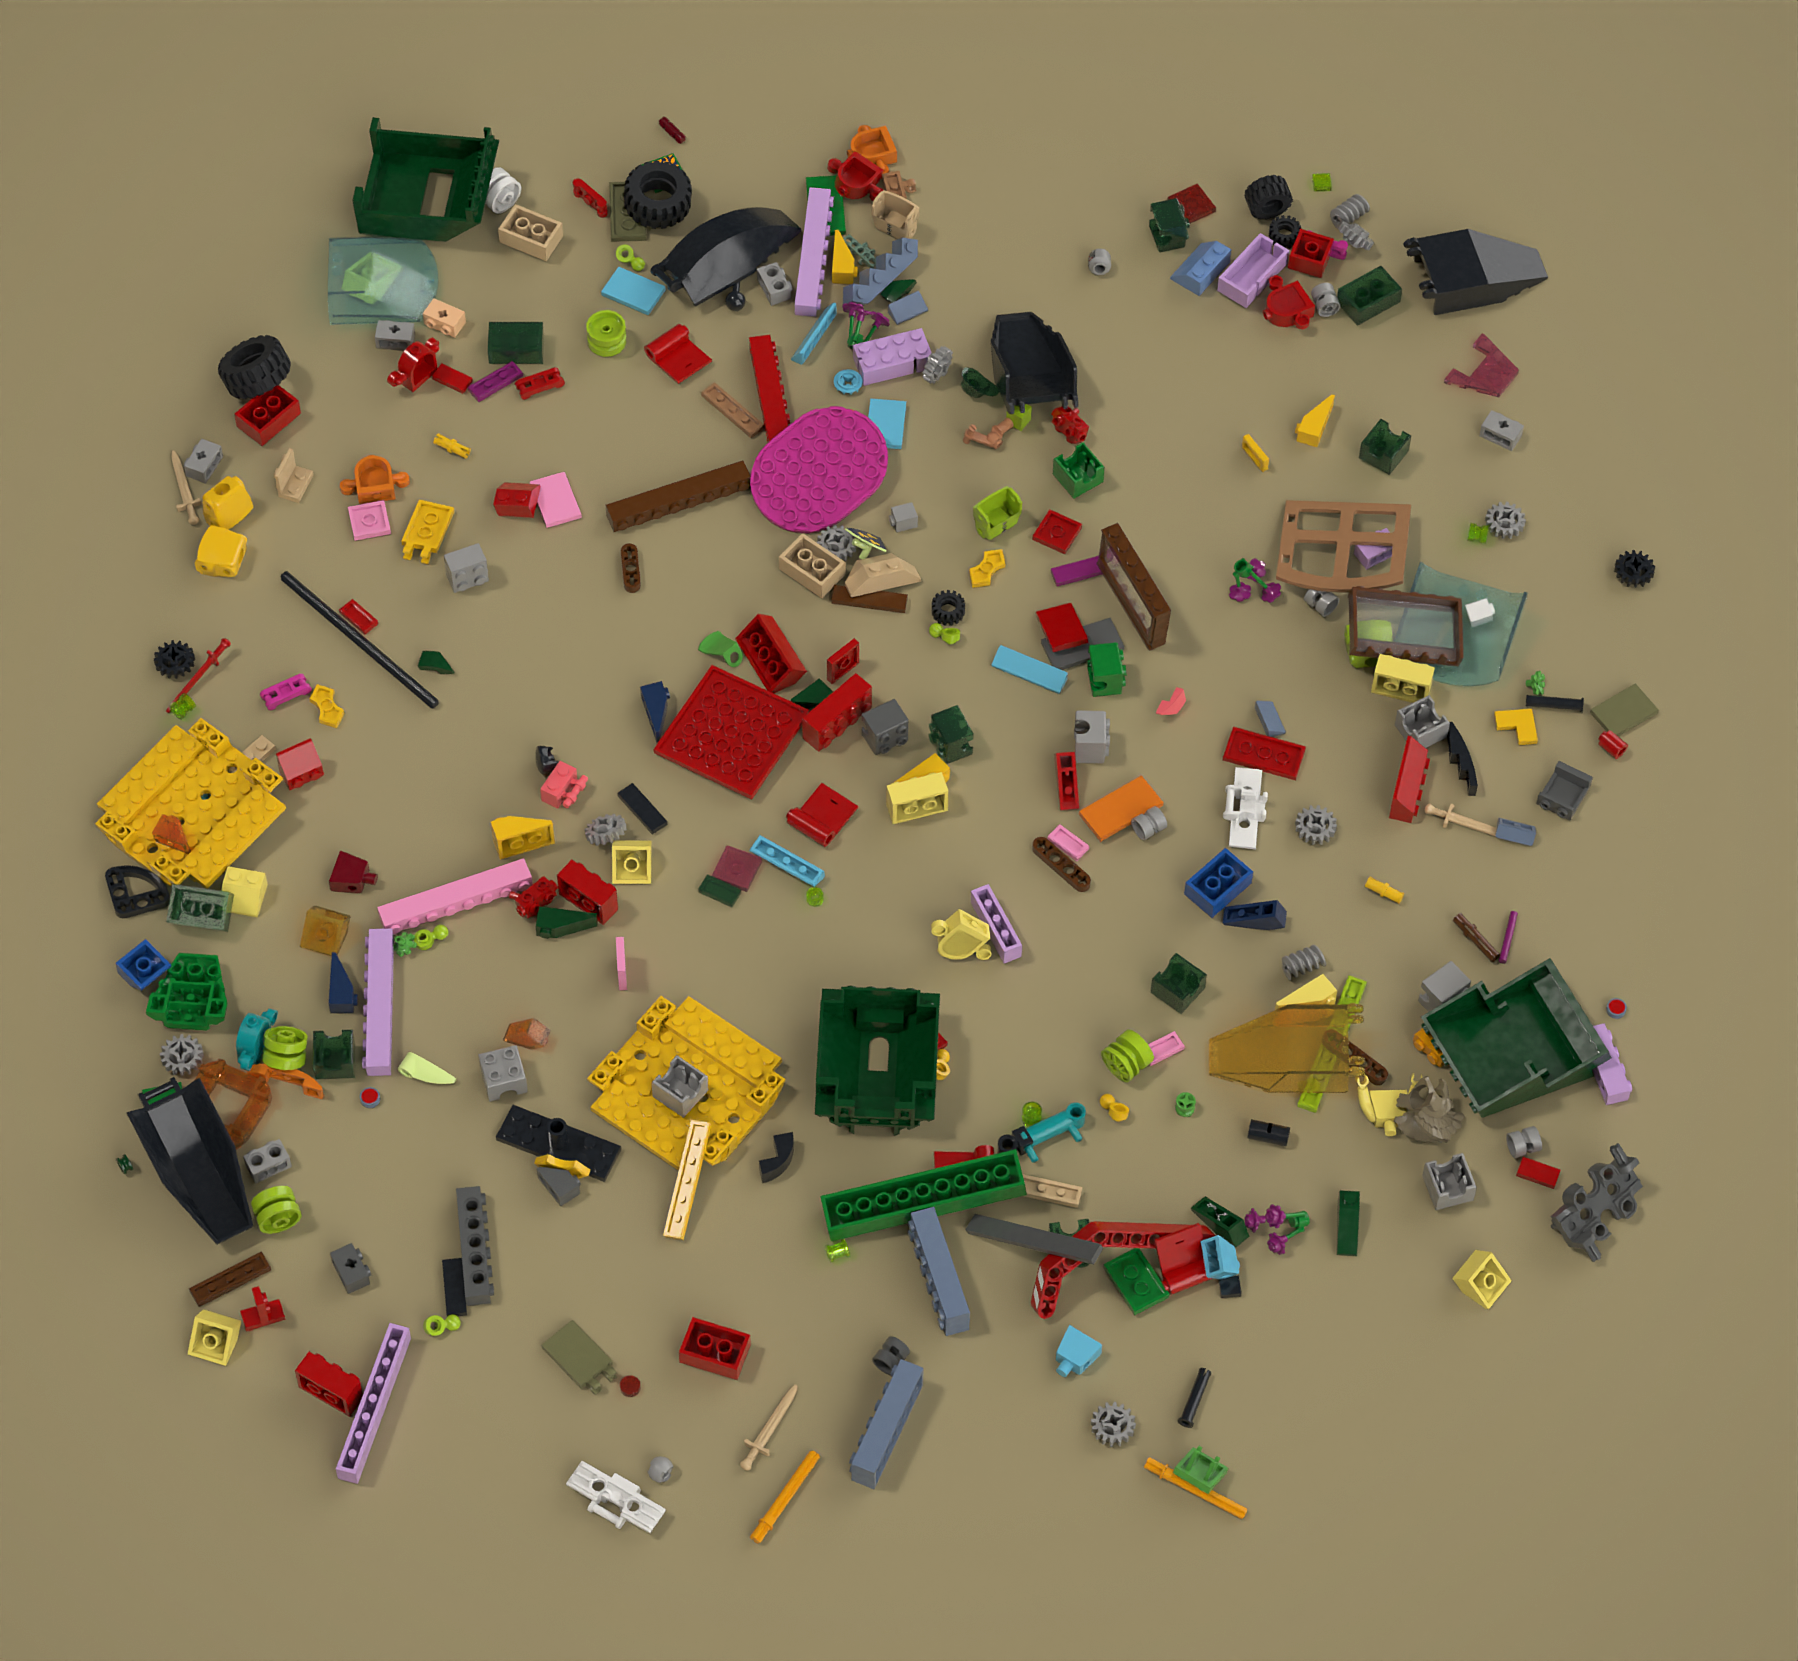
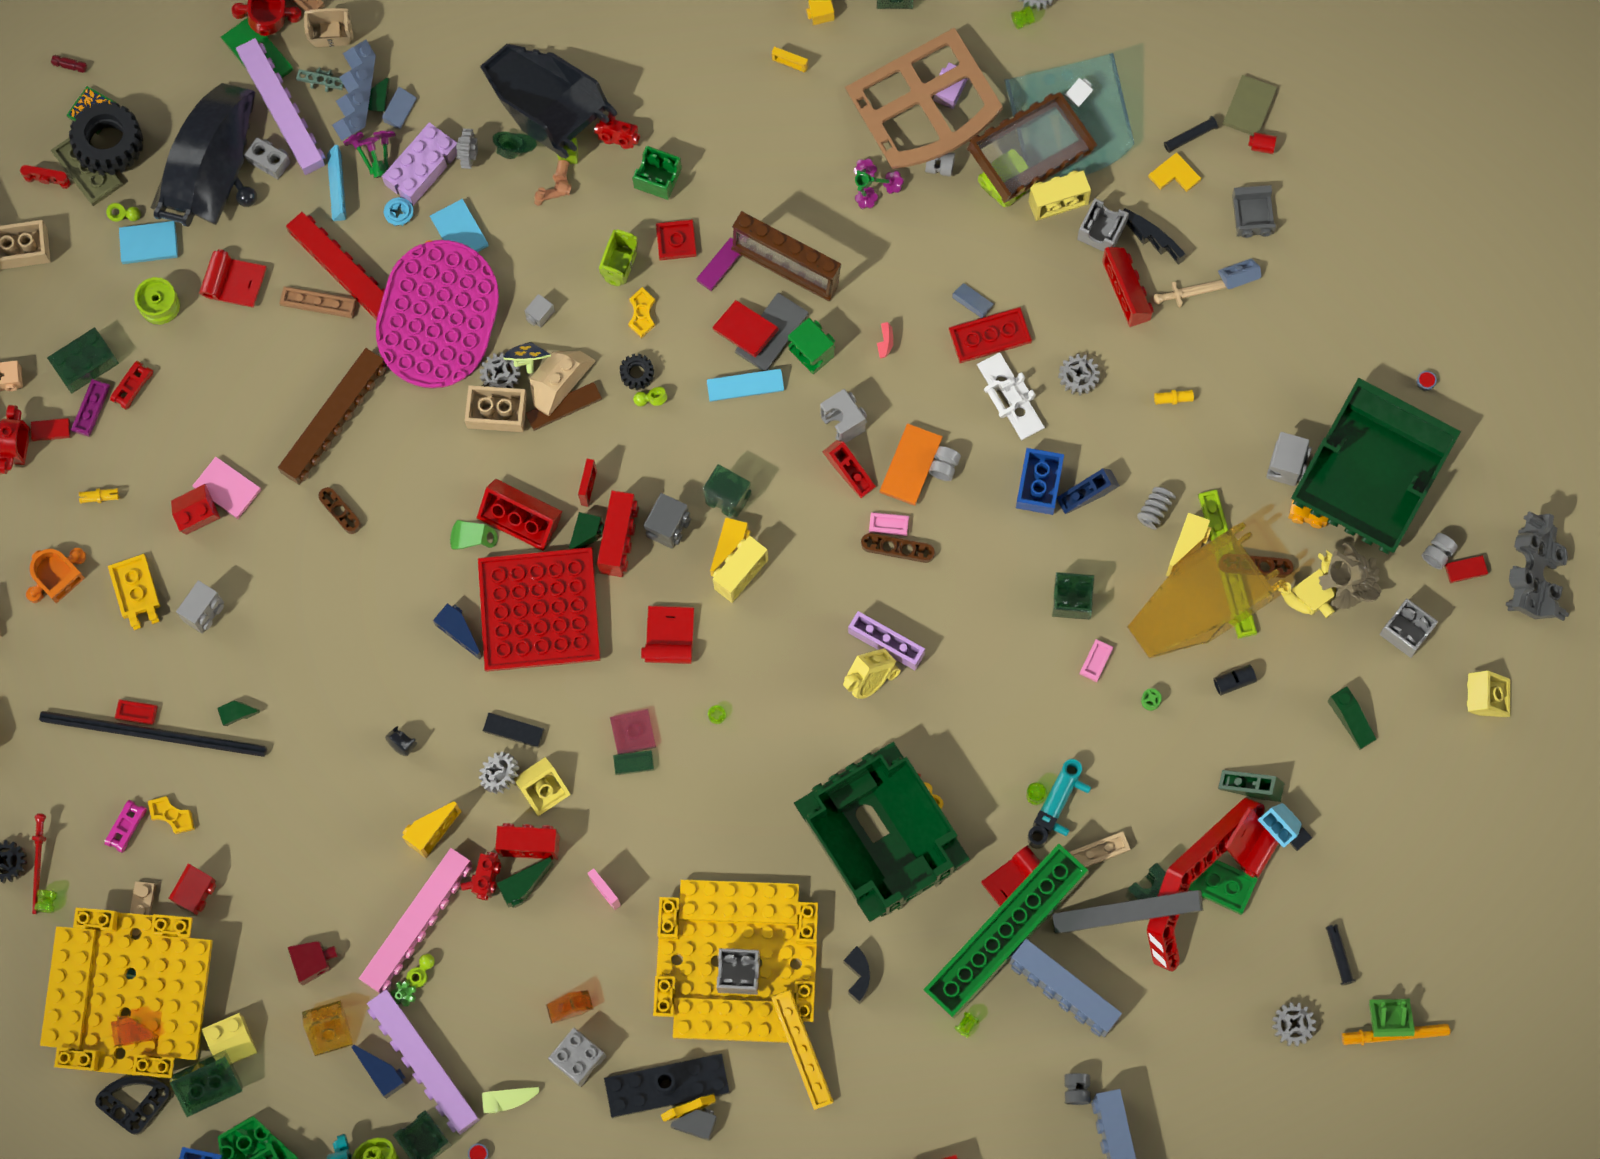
camera: 30 degrees left, 15 degrees up
(369, 520) = (77, 614): bright pink tile -> none
(559, 784) = (428, 756): coral brick -> none
(787, 861) = (671, 698): medium azure slope -> none
(843, 262) = (312, 98): yellow slope -> none
(1076, 1352) = (1220, 981): medium azure torso -> none
(1117, 1111) = (1102, 742): yellow plate -> none
(1127, 1055) = (1078, 690): lime wheel -> none
(1275, 1217) = (1301, 758): magenta plant -> none
(1461, 921) = (1253, 385): reddish brown pin -> none
(1508, 937) = (1299, 374): magenta bar -> none
(1536, 683) = (1164, 126): bright green plant -> none
(1611, 1074) = (1467, 447): lavender brick -> none

